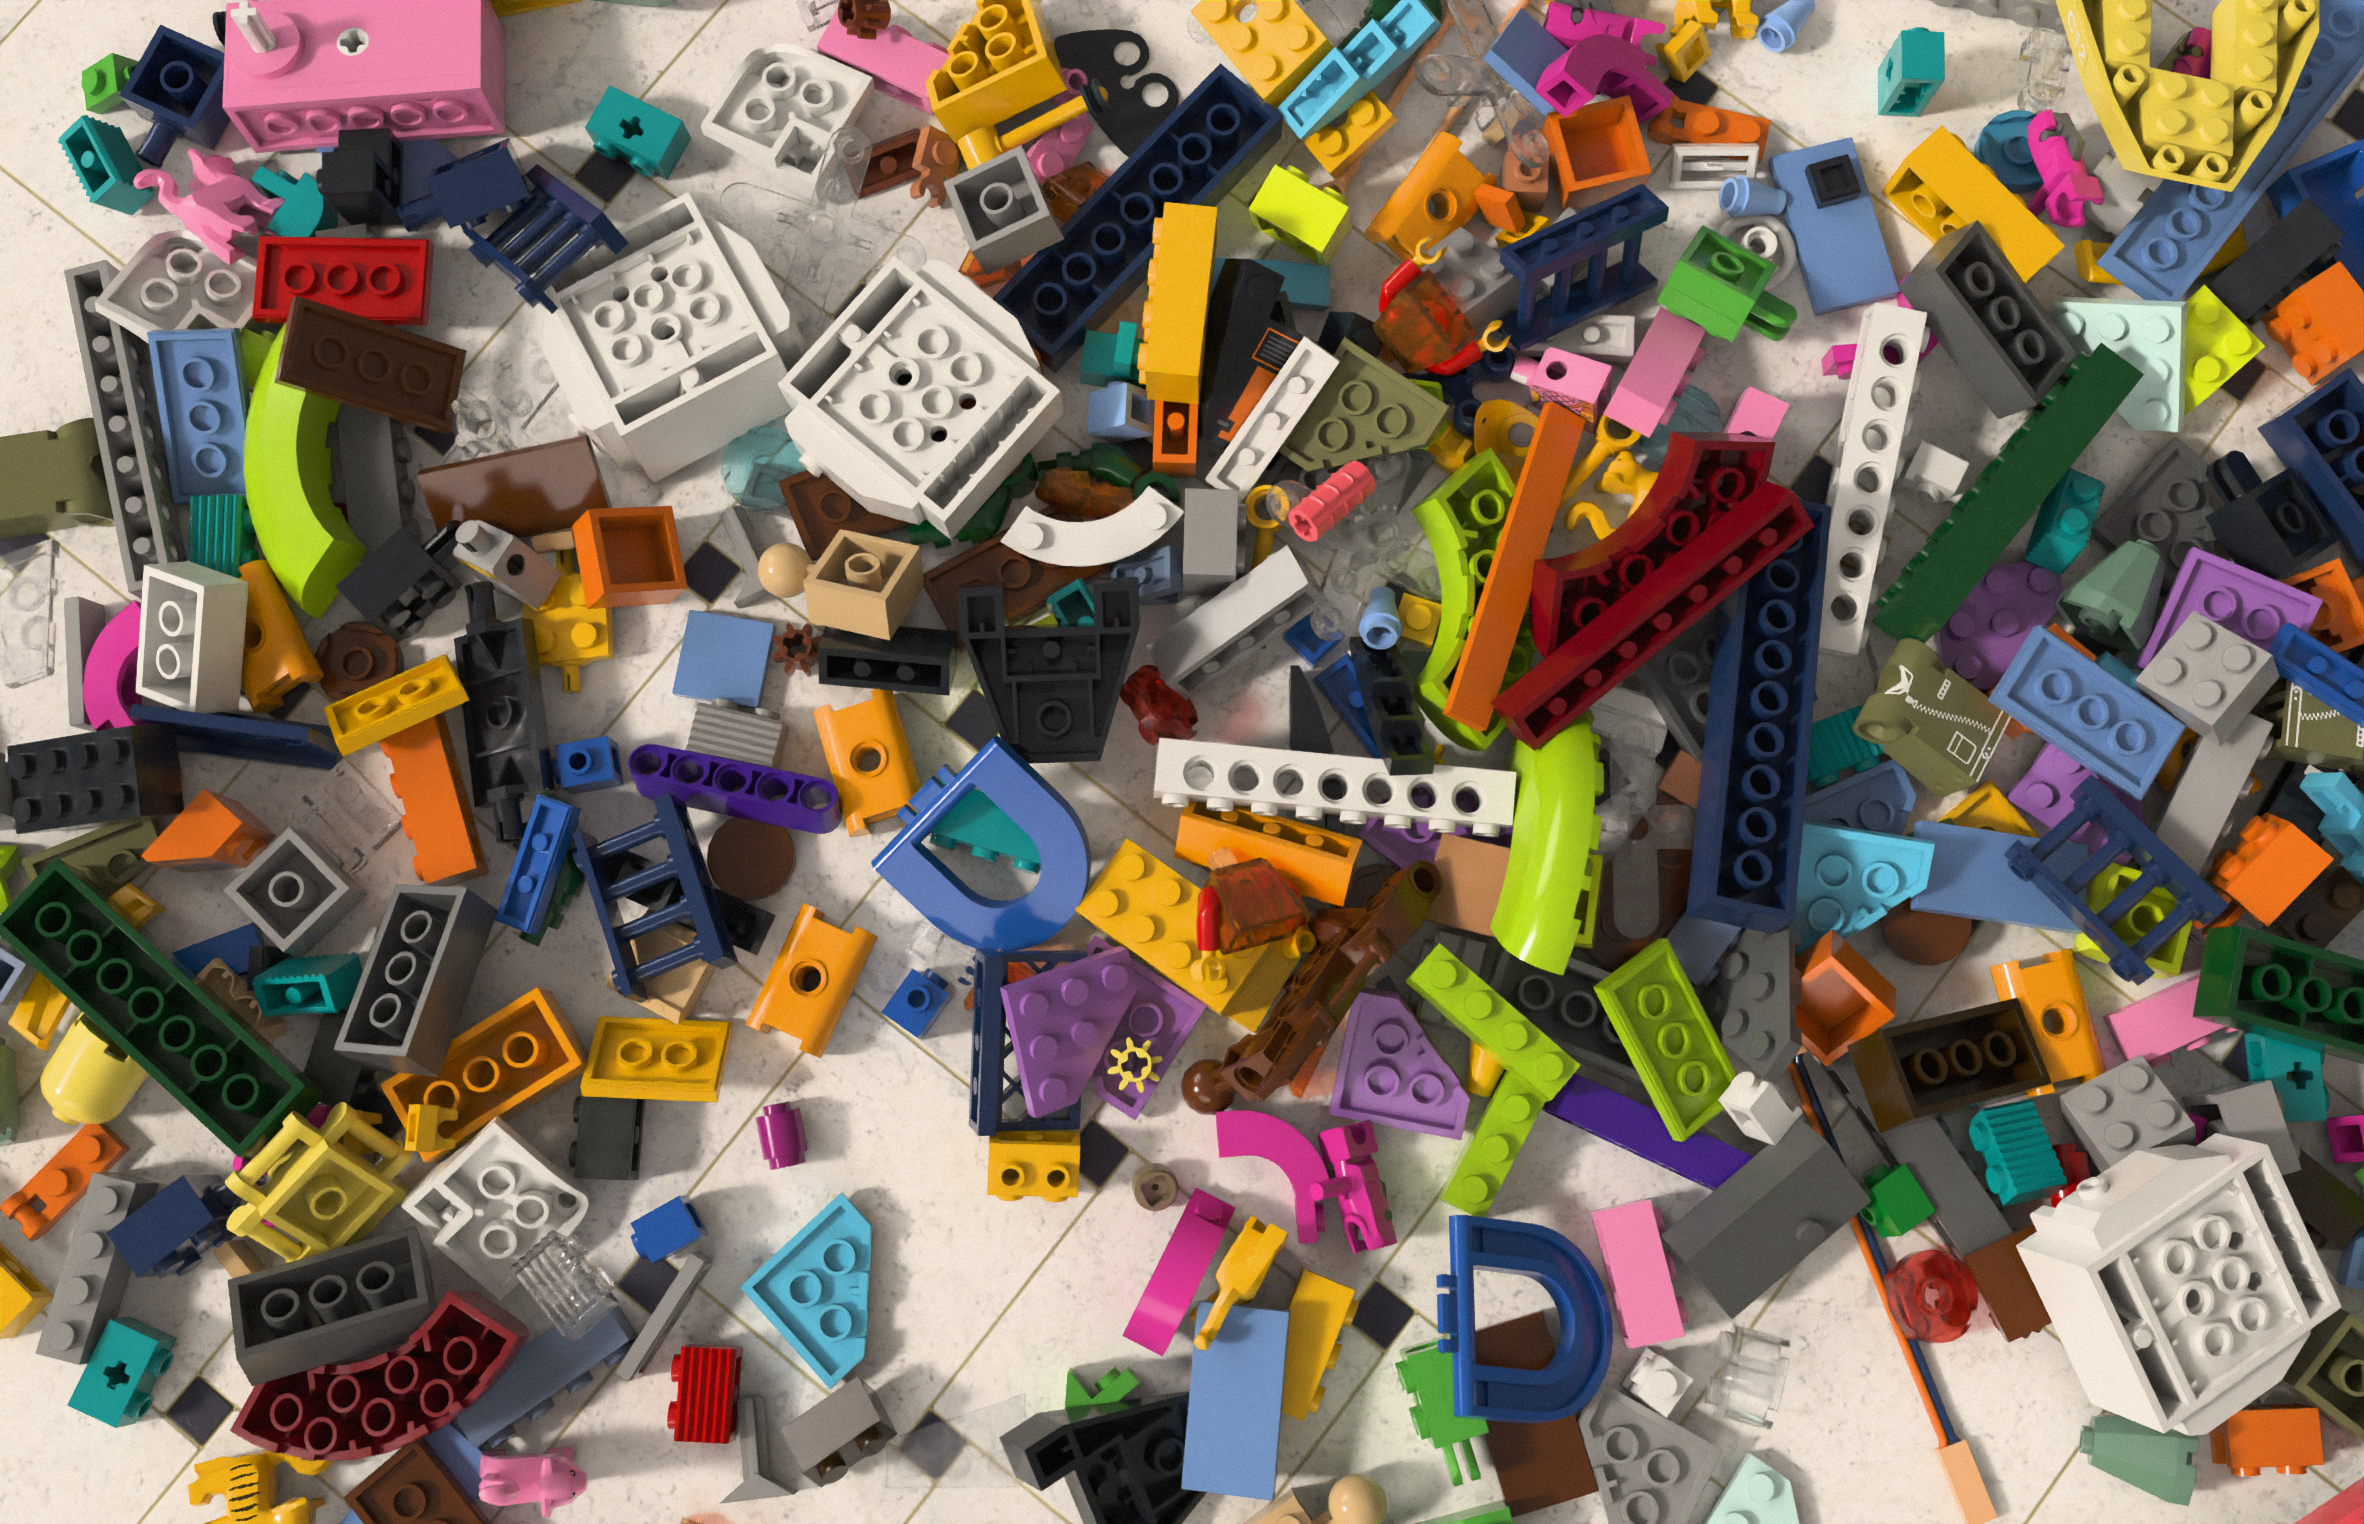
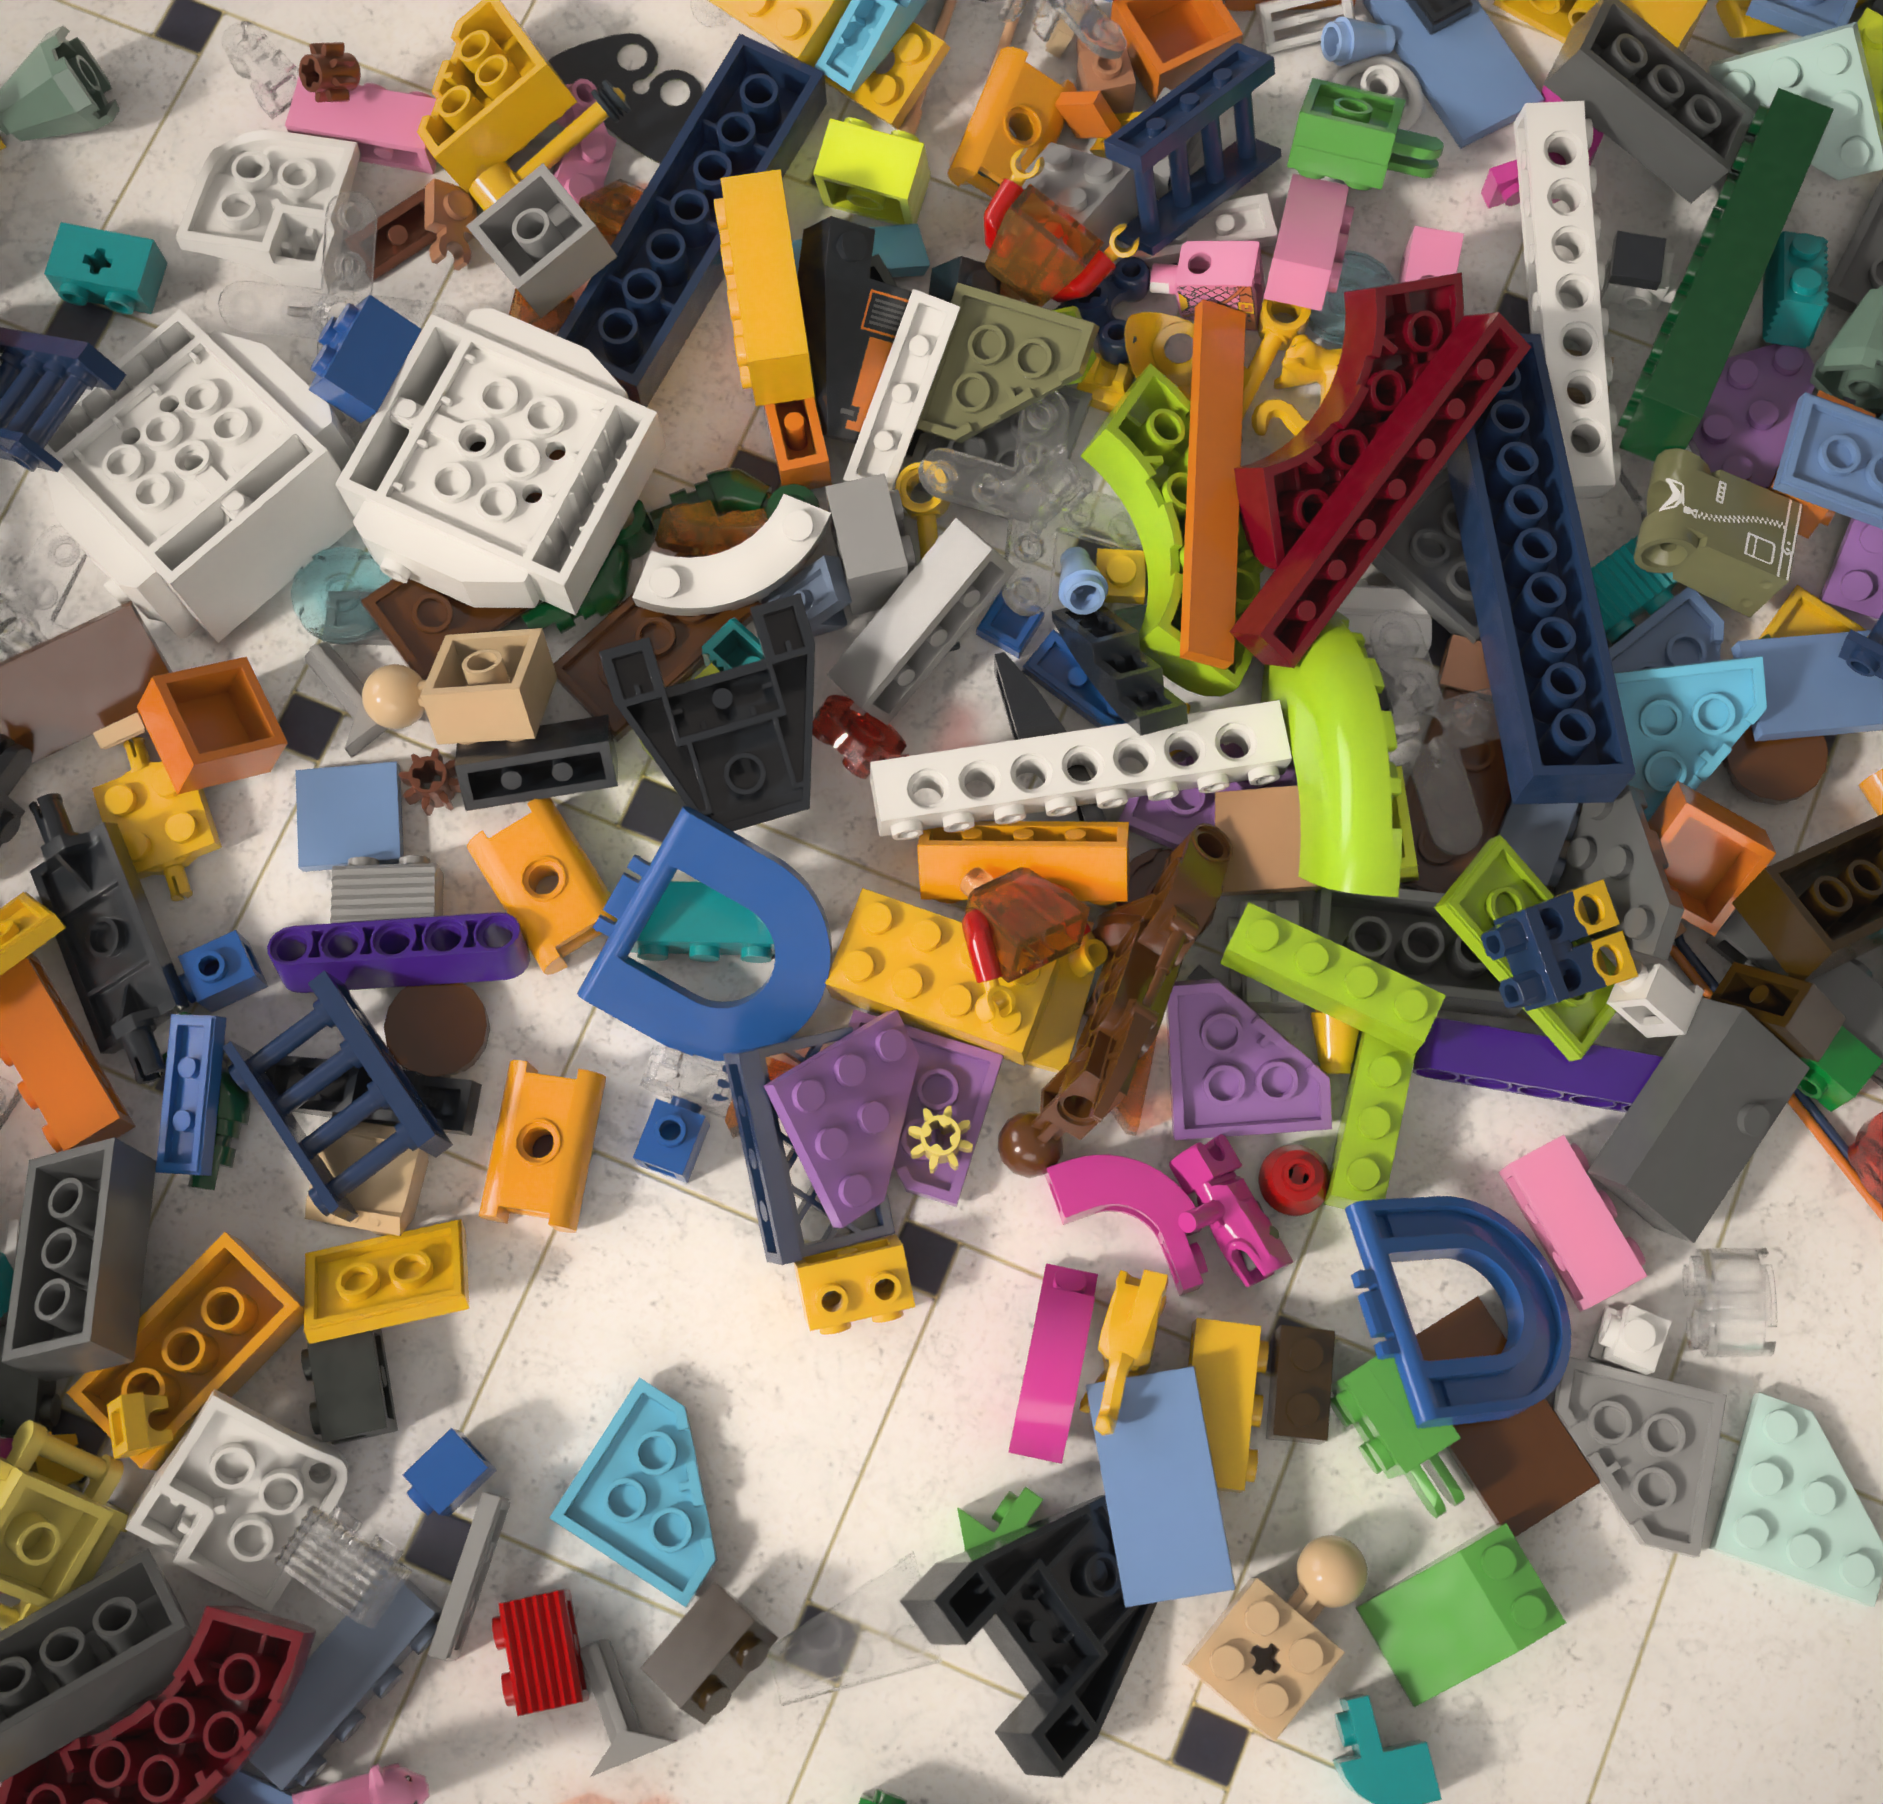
camera: 15 degrees left, 5 degrees down
(486, 552) = (48, 760): light grey torso -> none
(782, 1135) = (553, 1331): magenta brick -> none
(826, 278) = (361, 357): none -> blue brick
(1111, 356) = (706, 378): teal brick -> none
(1120, 413) = (729, 432): light blue brick -> none
(1155, 1186) = (999, 1275): dark tan tile -> none
(1332, 501) = (992, 458): coral axle -> none
(1374, 1346) = (1300, 1385): none -> dark brown brick
(1411, 1185) = (1288, 1194): none -> red cone
(1673, 1051) = (1542, 953): none -> dark blue hips
(1861, 1146) = (1785, 1006): none -> dark brown brick
(1934, 462) = (1637, 260): none -> black tile

